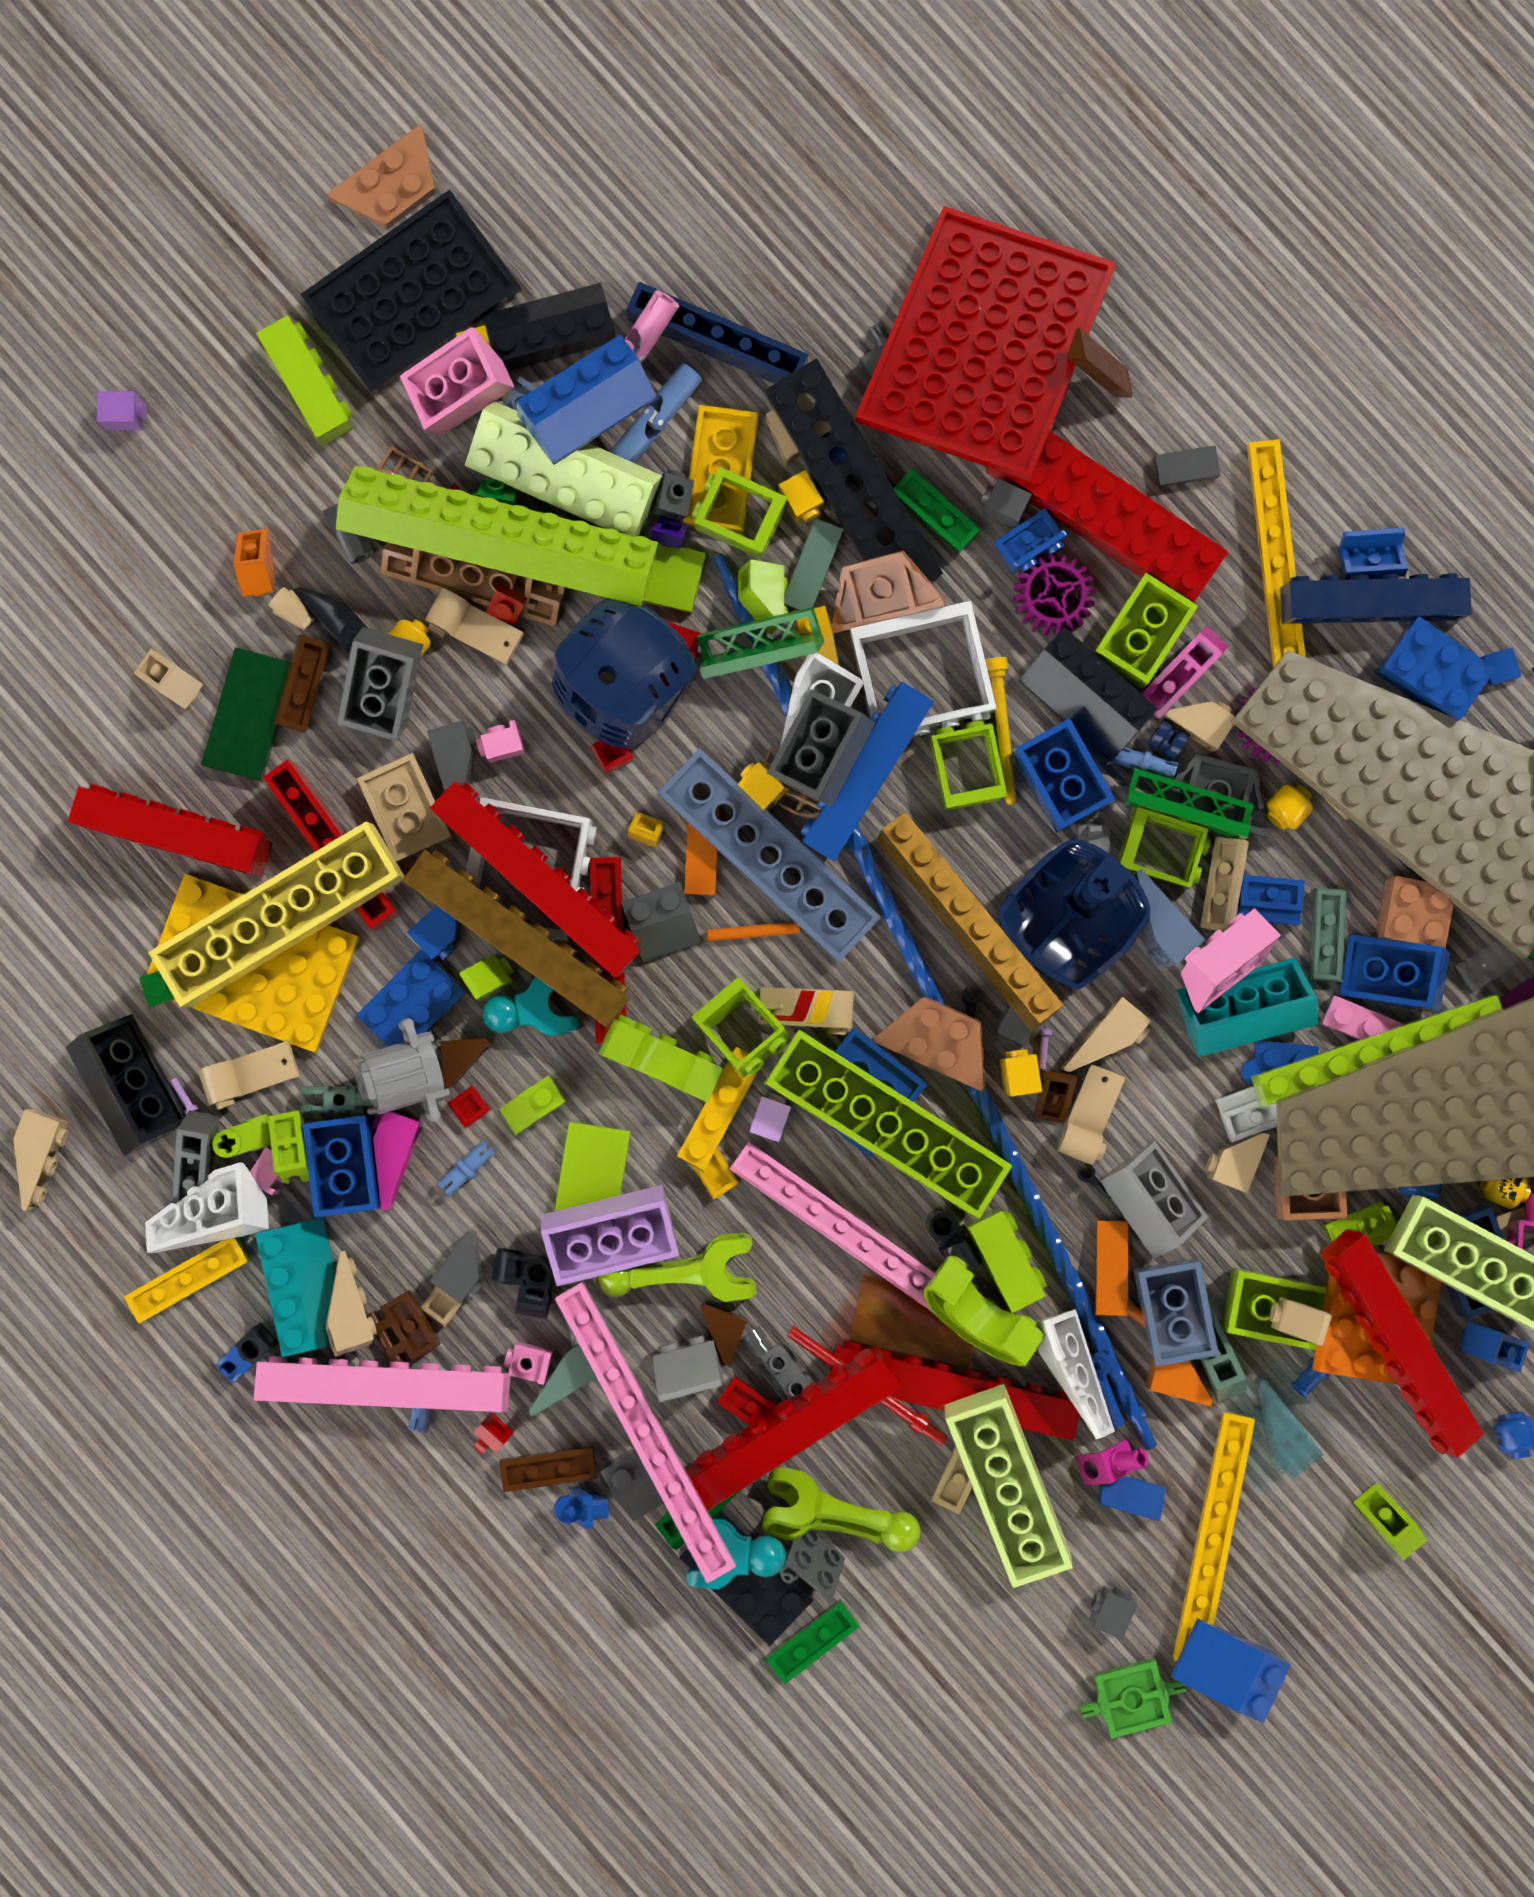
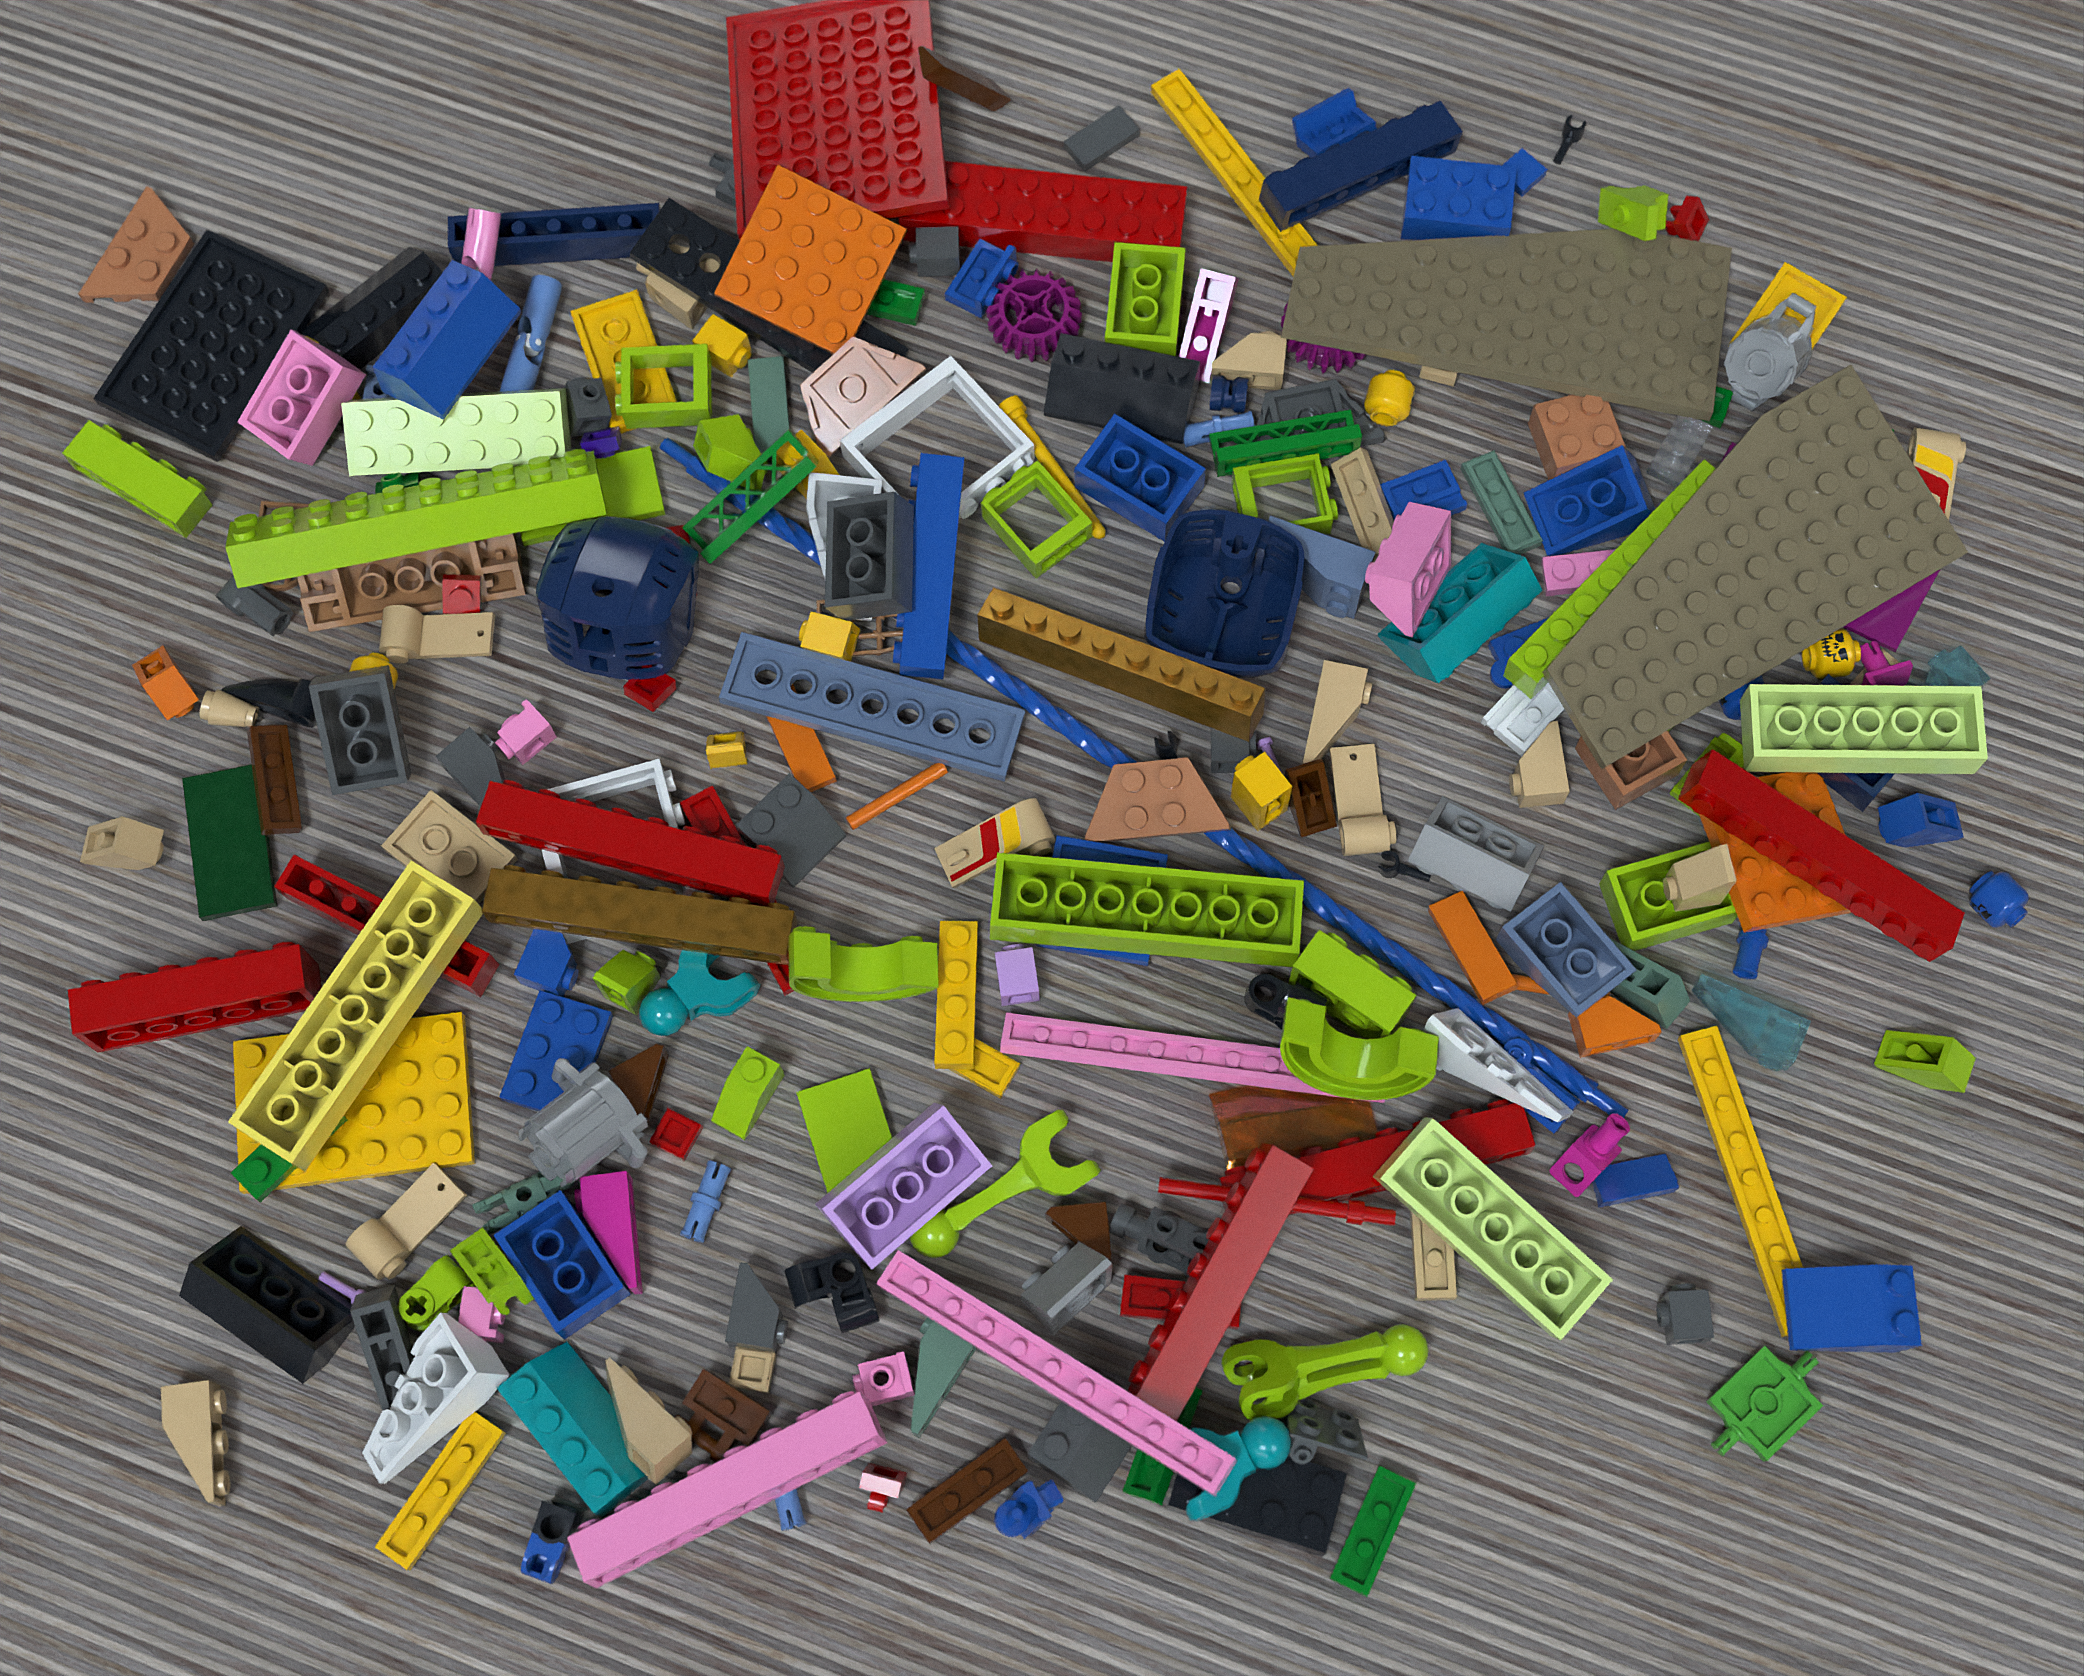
camera: 25 degrees left, 15 degrees down
(721, 1007) = (904, 881): lime window -> none
(899, 471) = (810, 261): none -> orange plate

